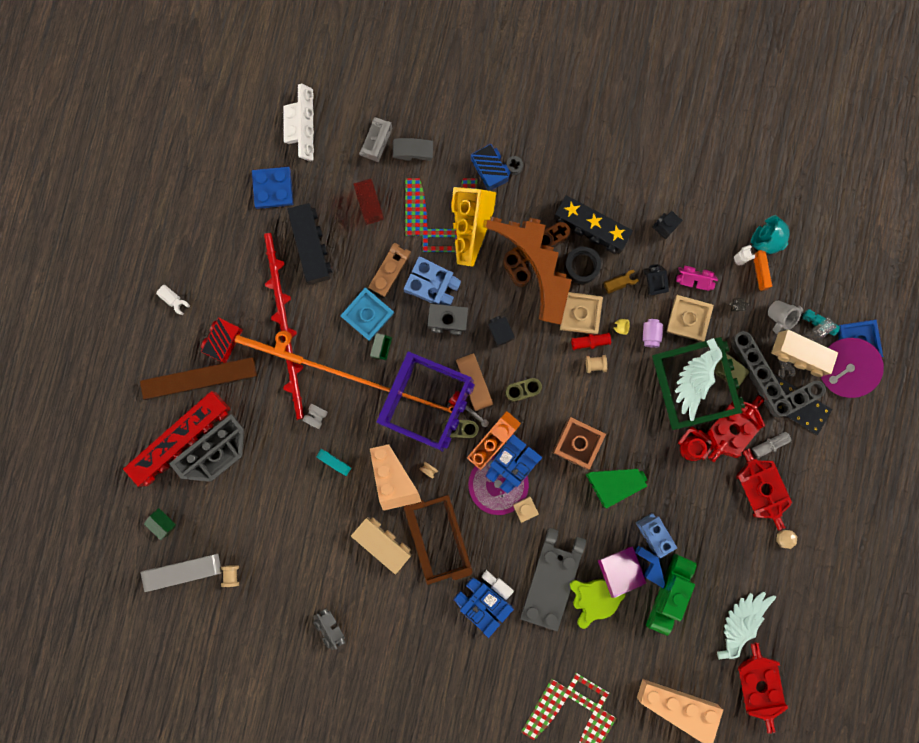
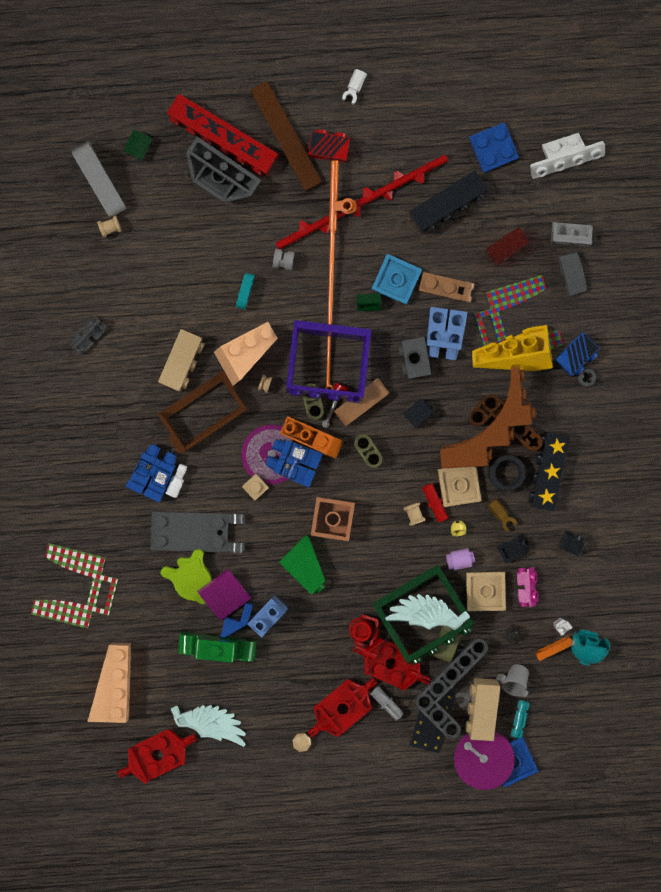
camera: 70 degrees right, 5 degrees up
(821, 330) = (510, 719): clear bar -> none

